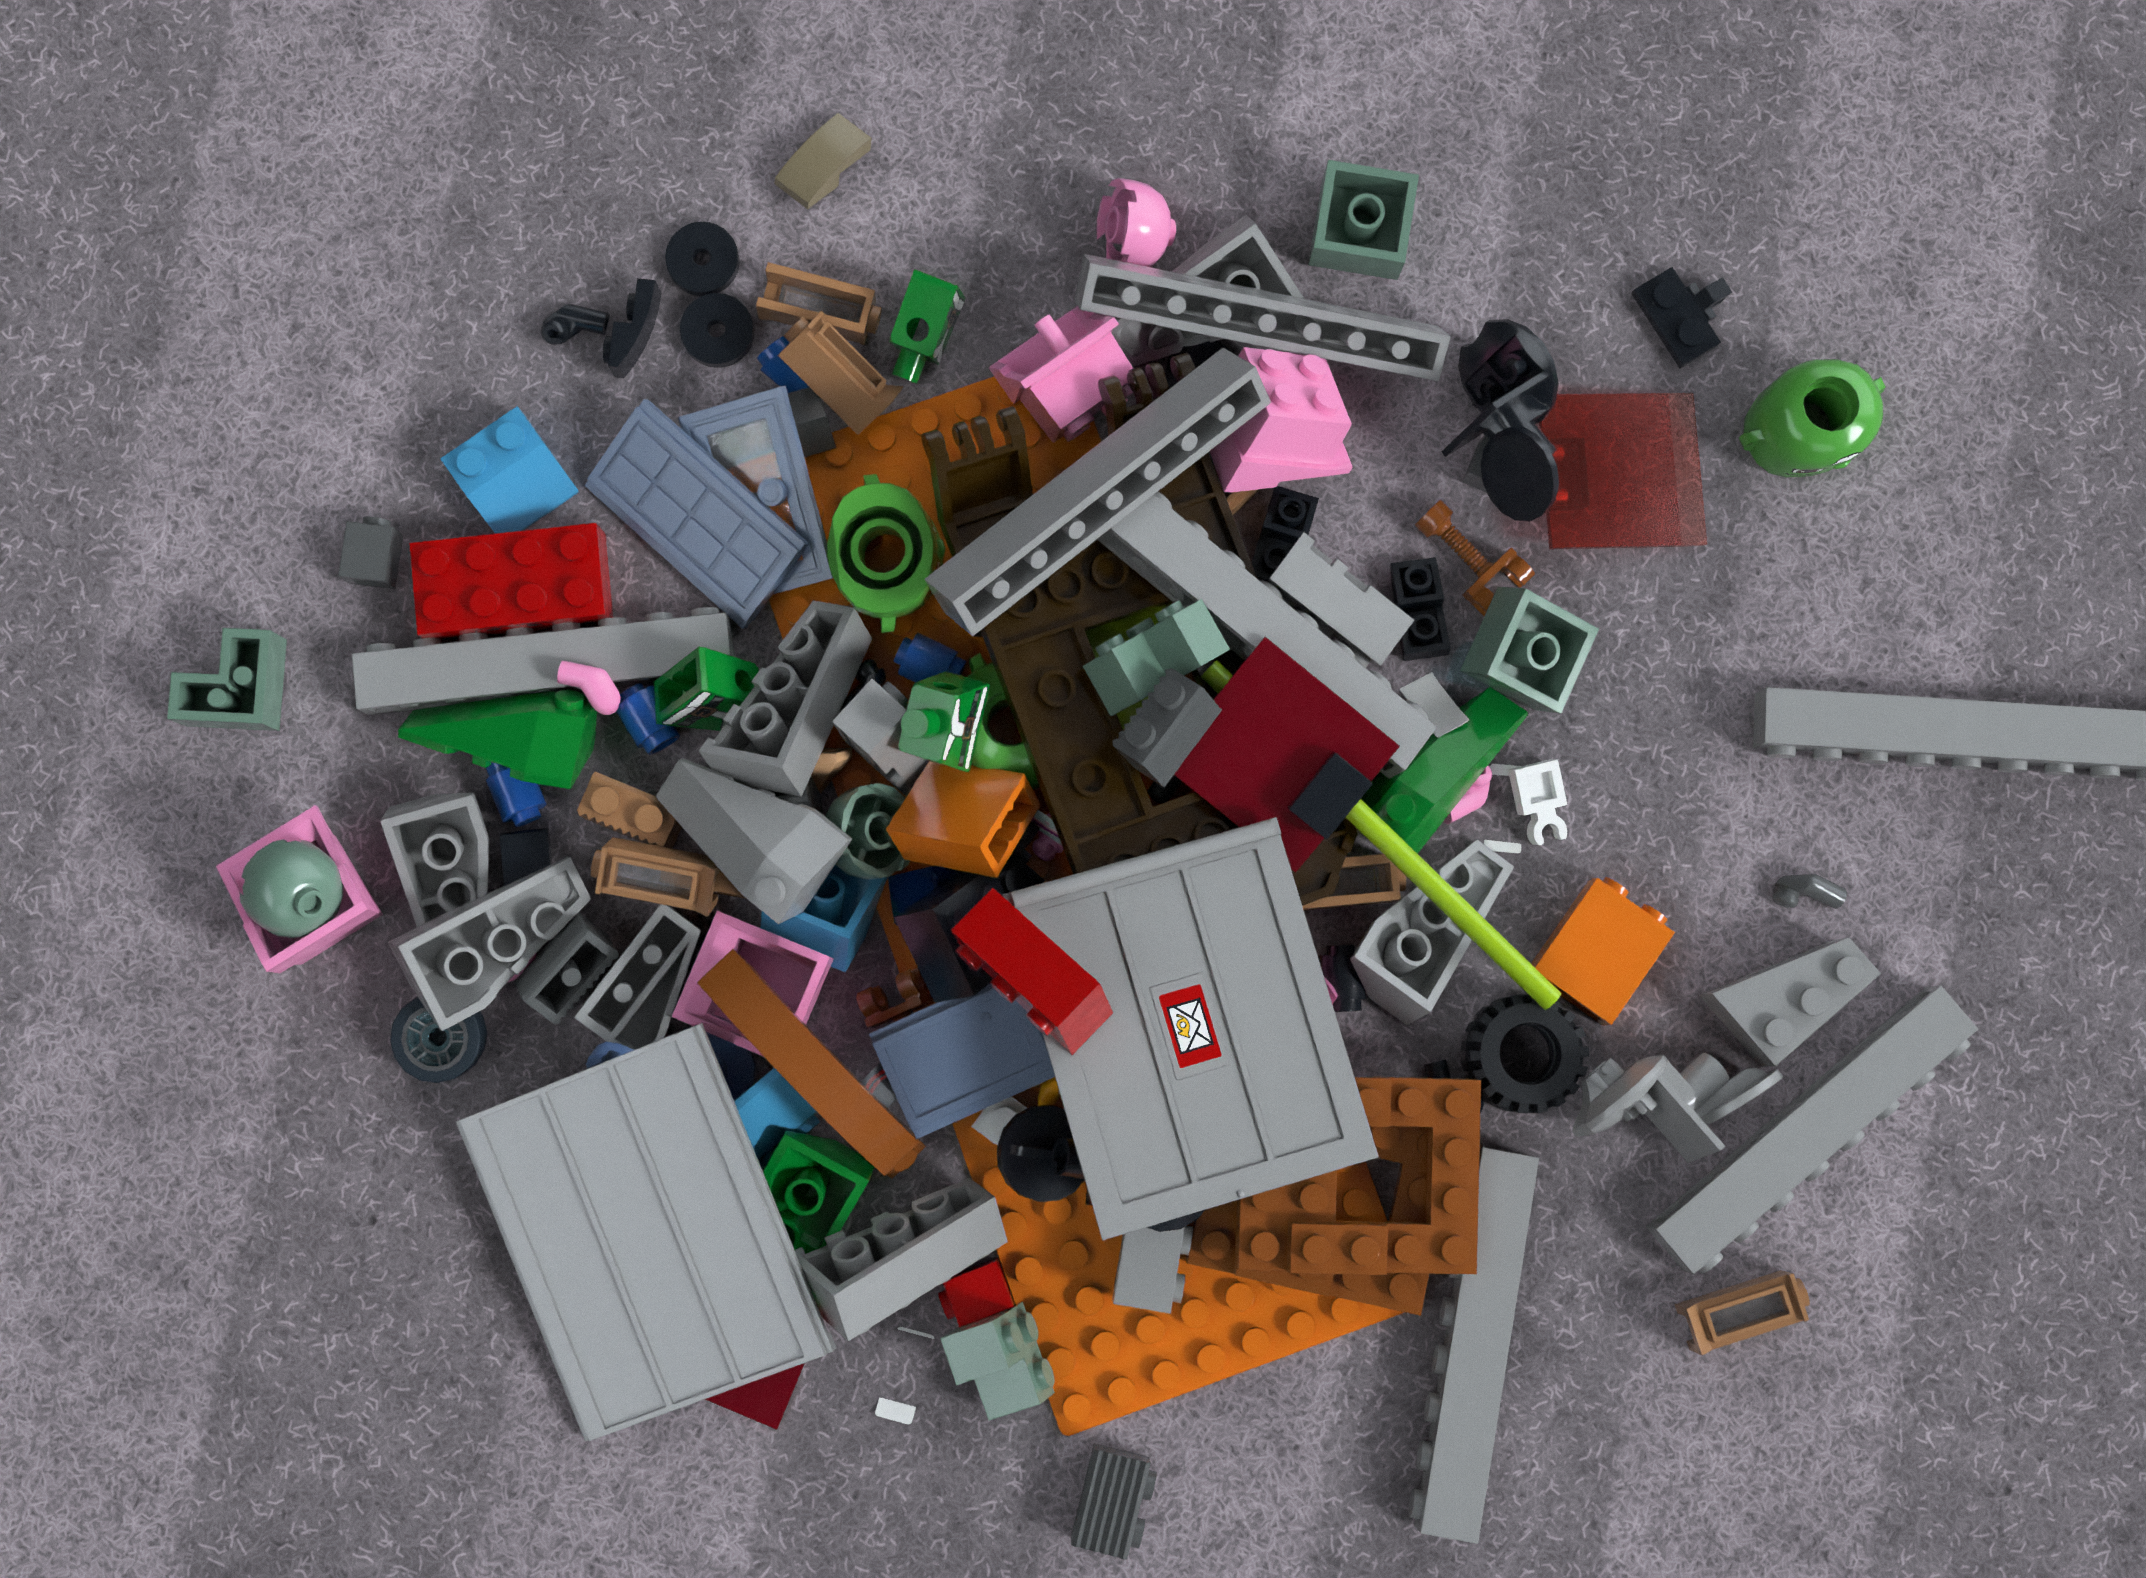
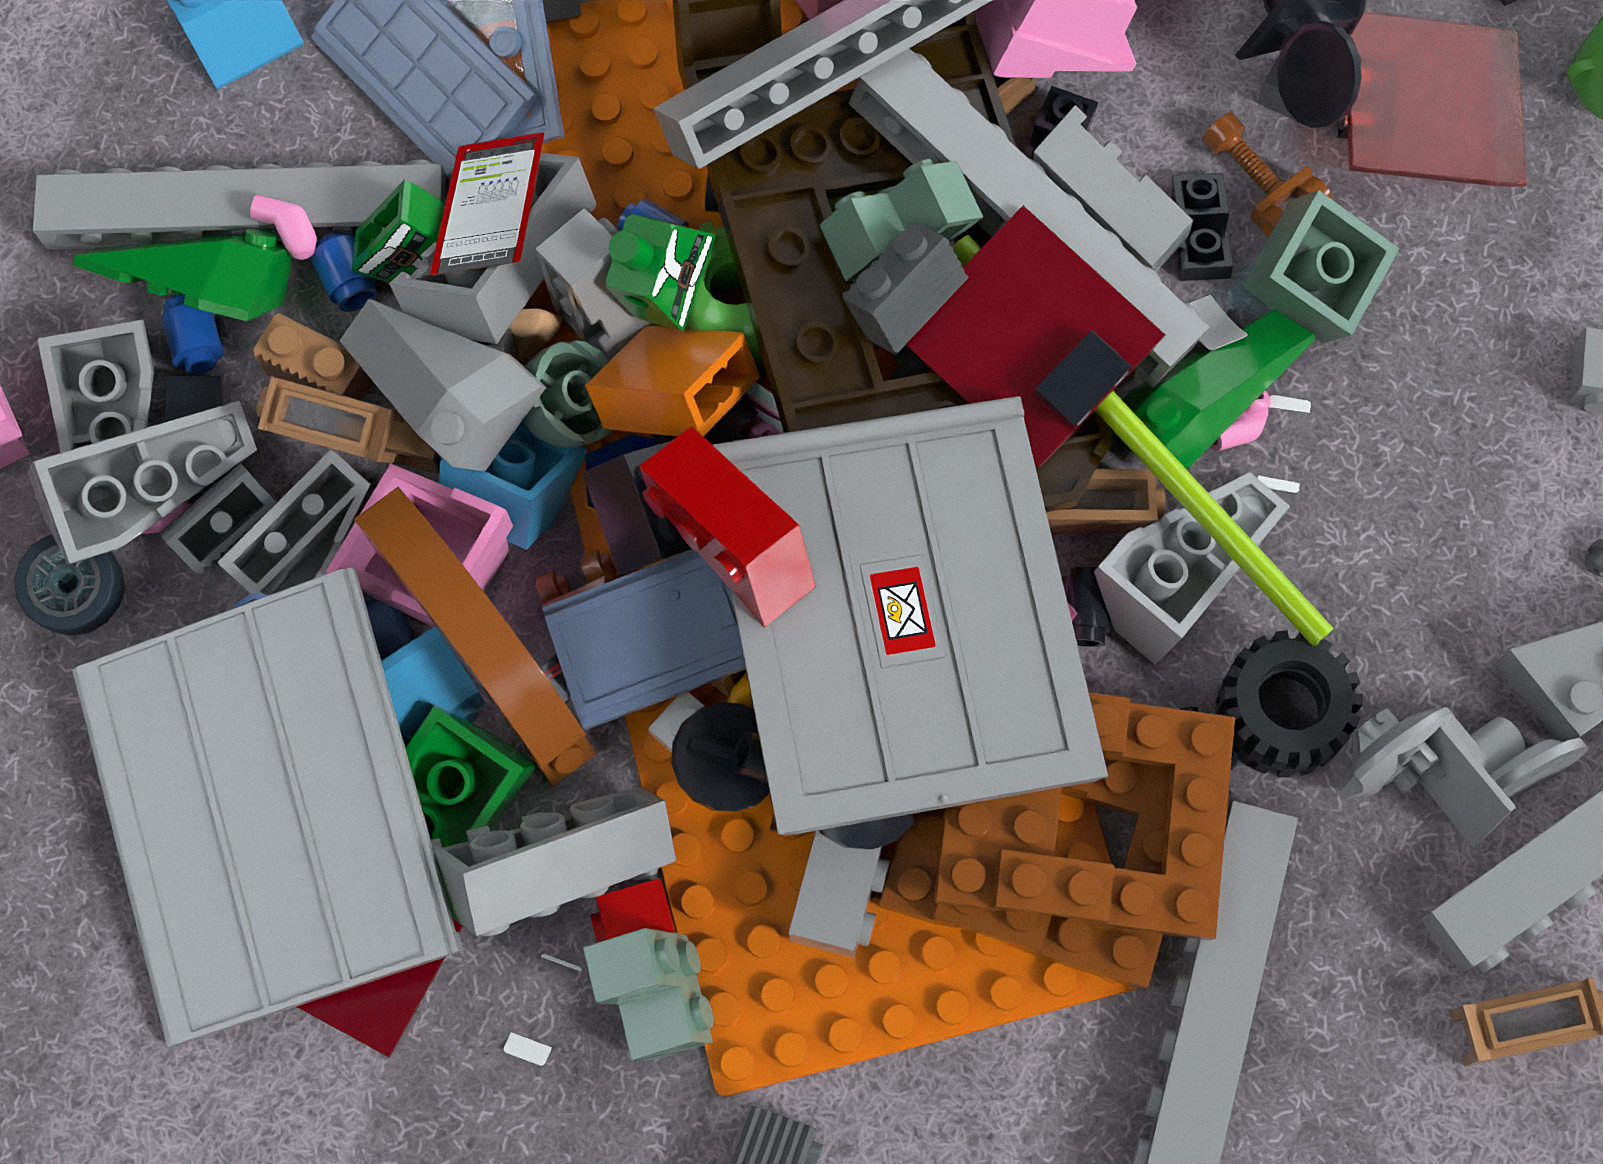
camera: 15 degrees right, 10 degrees down
(371, 553) = (74, 84): dark grey brick -> none
(511, 581) = (217, 116): red brick -> none
(777, 661) = (488, 204): none -> sticker
(858, 520) = (610, 71): bright green piece -> none
(1538, 792) = (1323, 425): white plate -> none
(1602, 949) = (1386, 598): orange brick -> none

